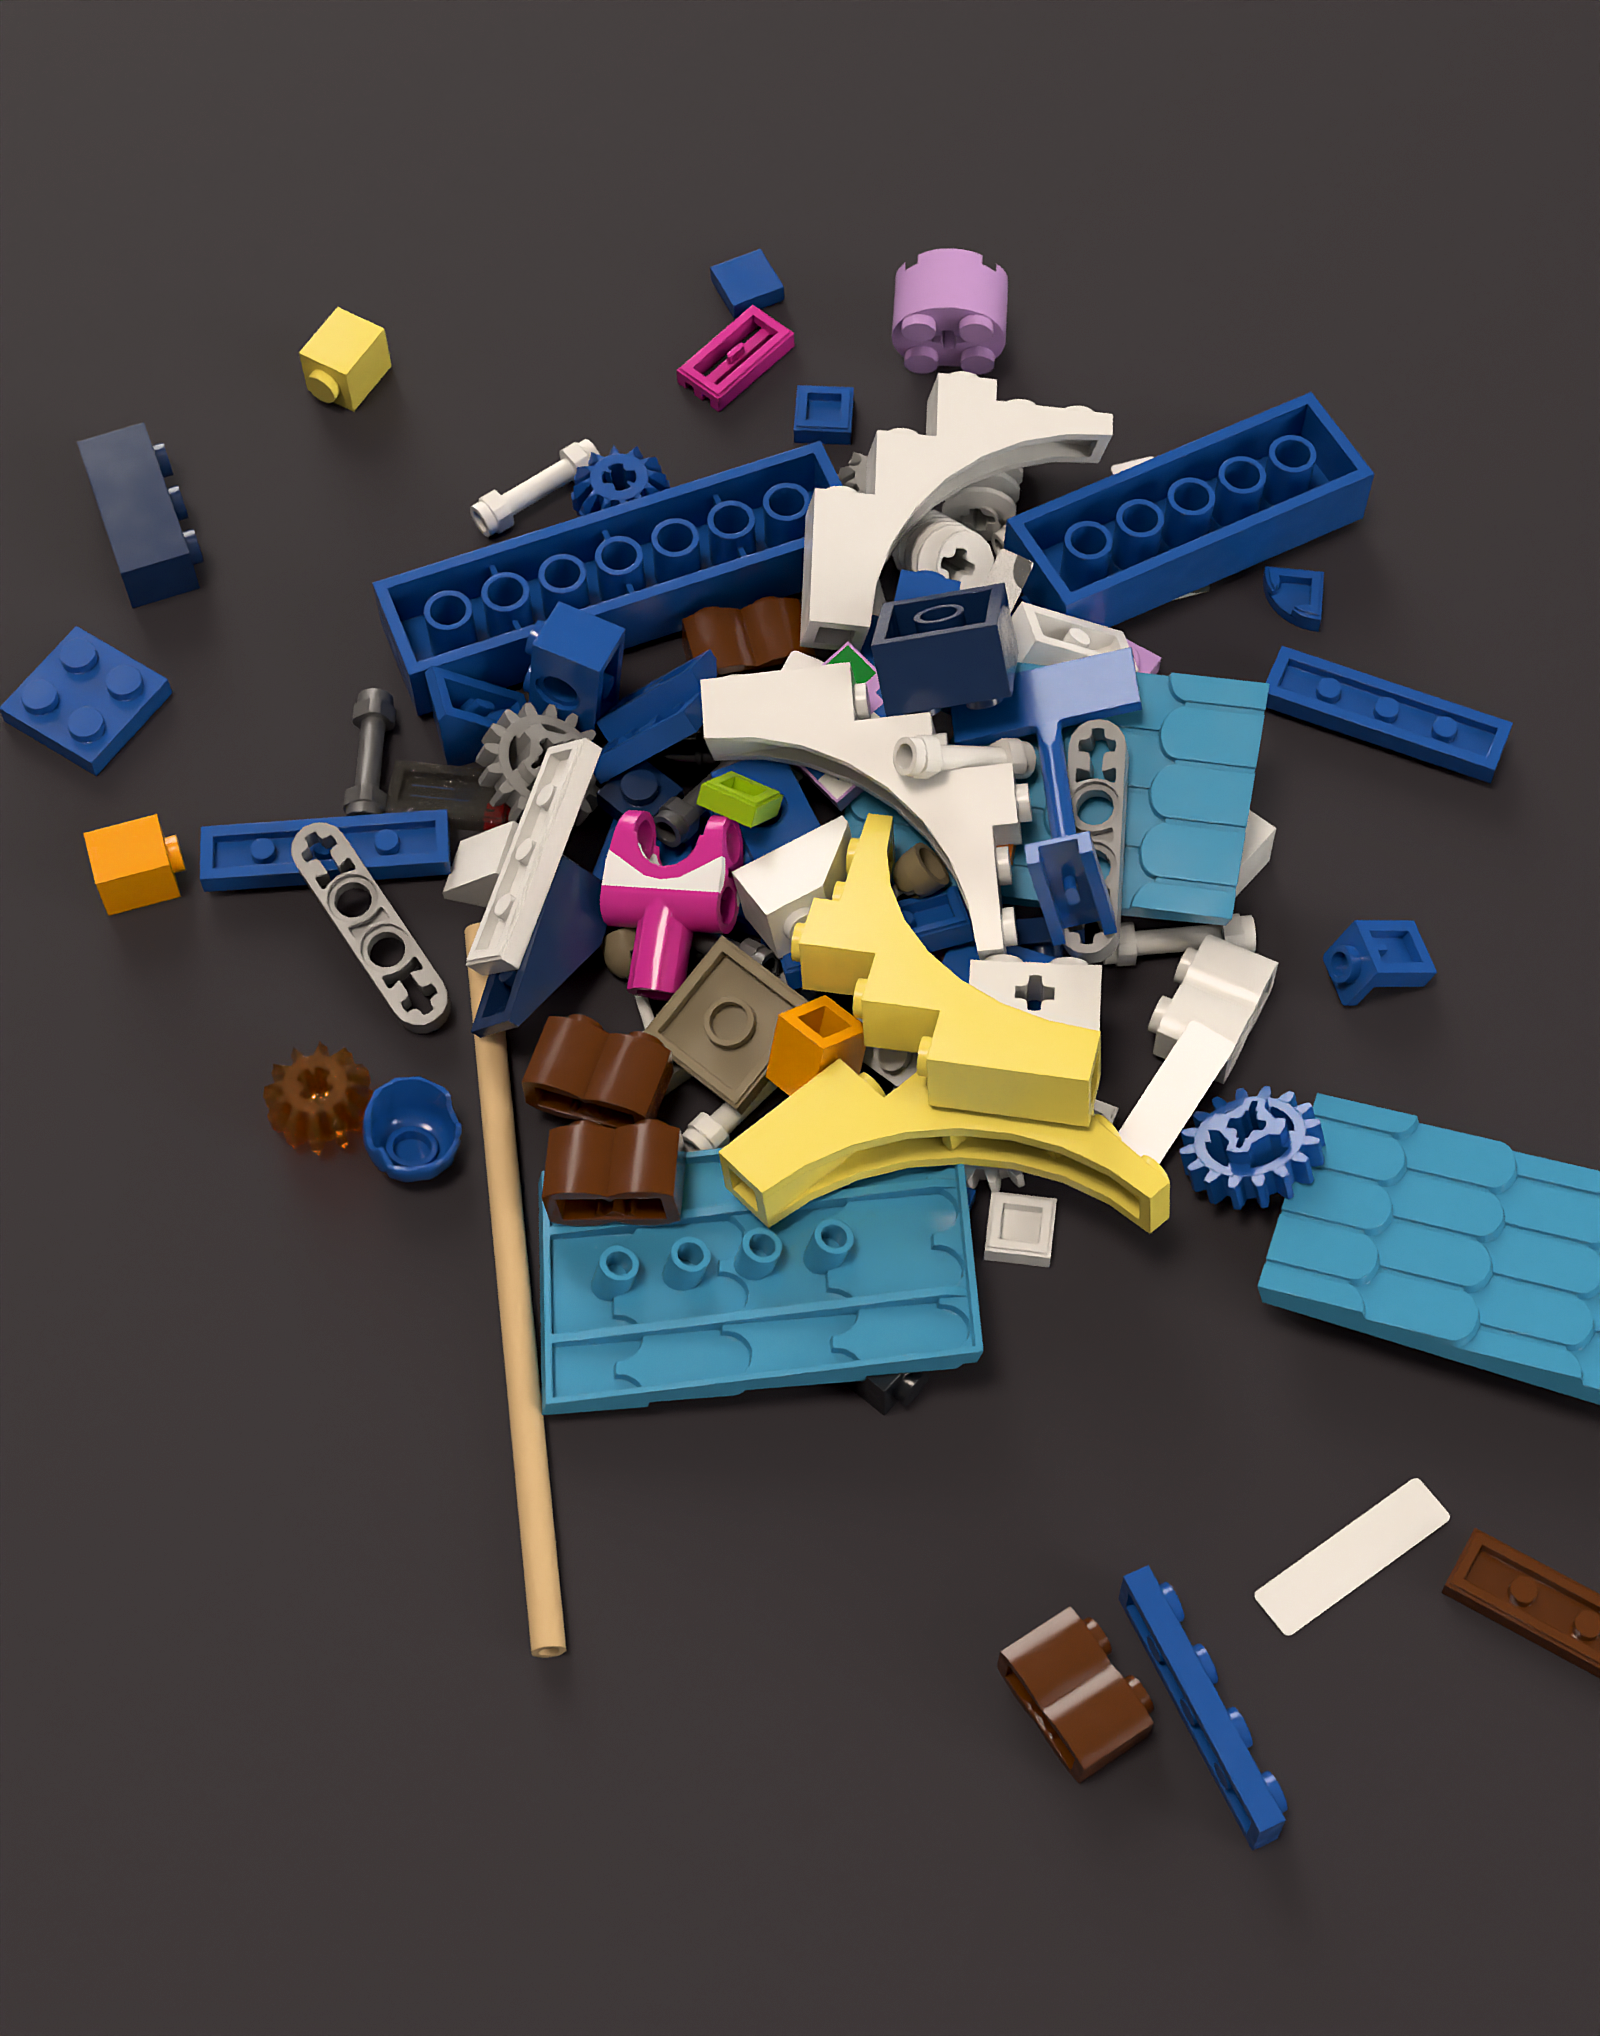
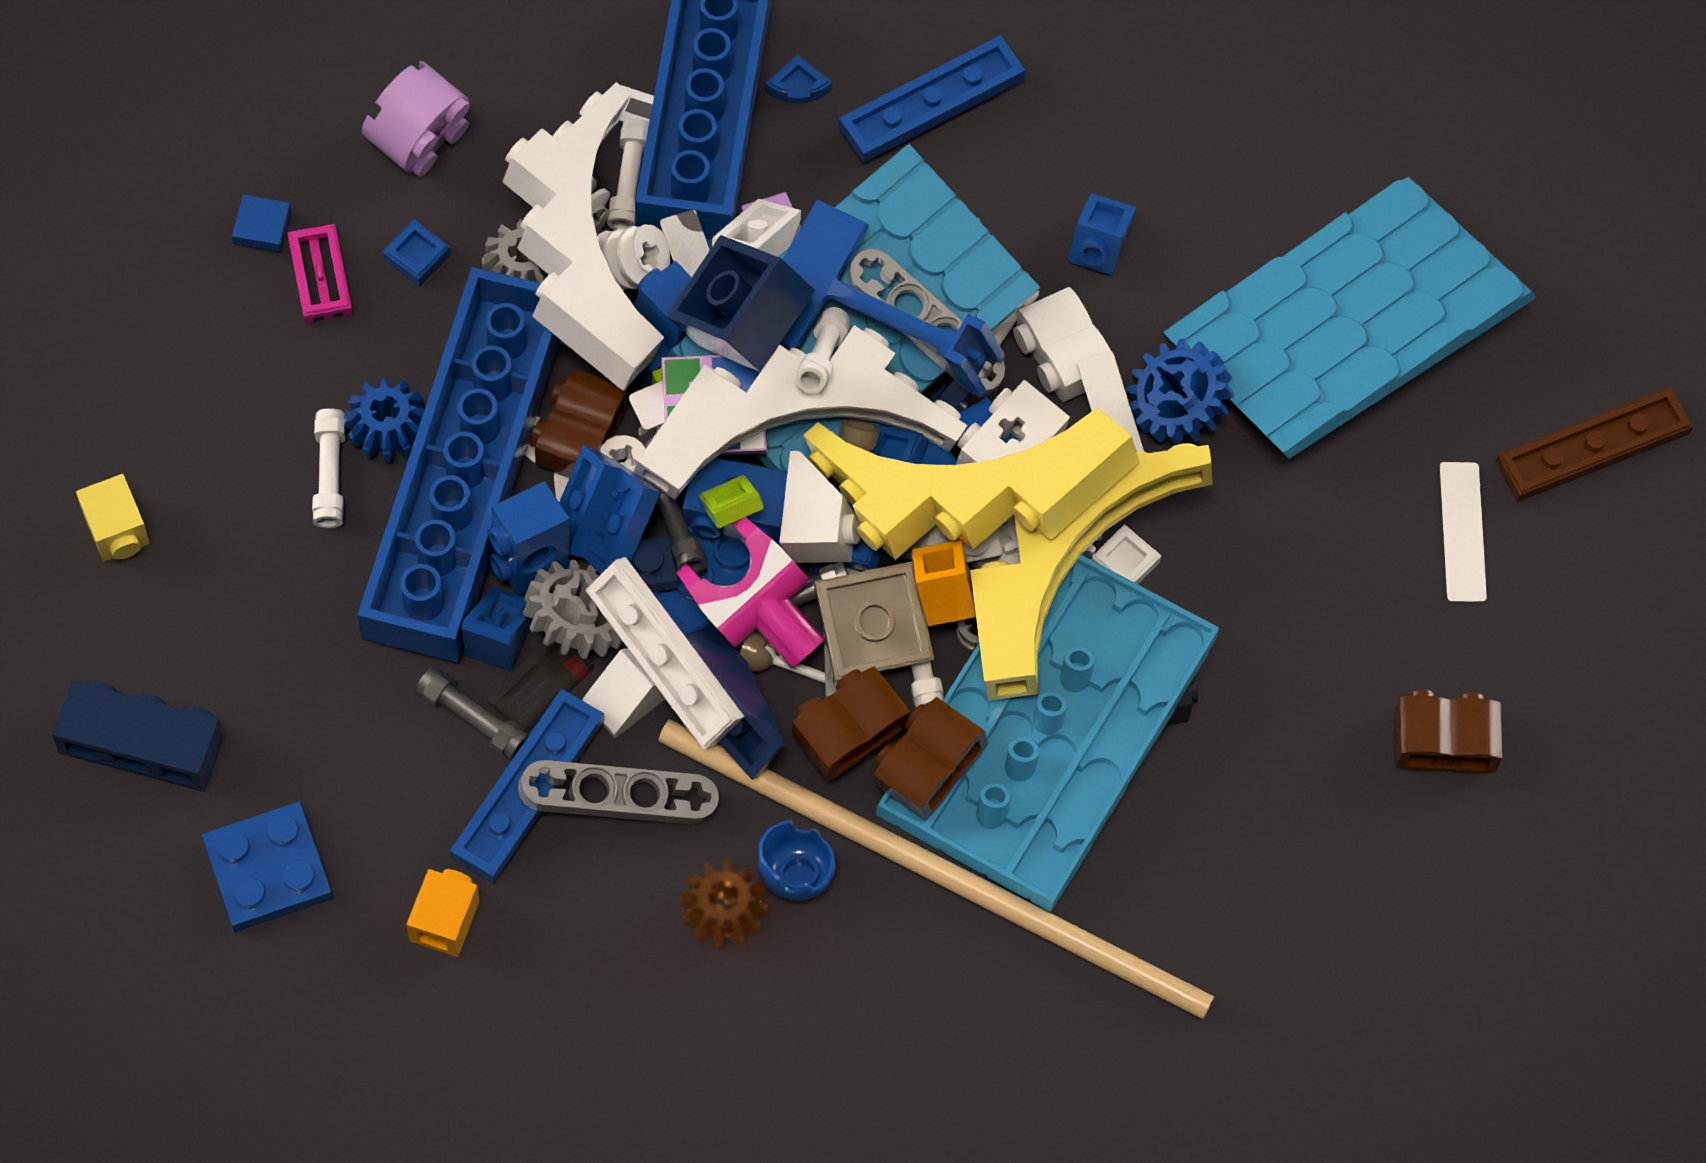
camera: 60 degrees left, 5 degrees up
(1217, 1731) = (1513, 675): blue plate -> none

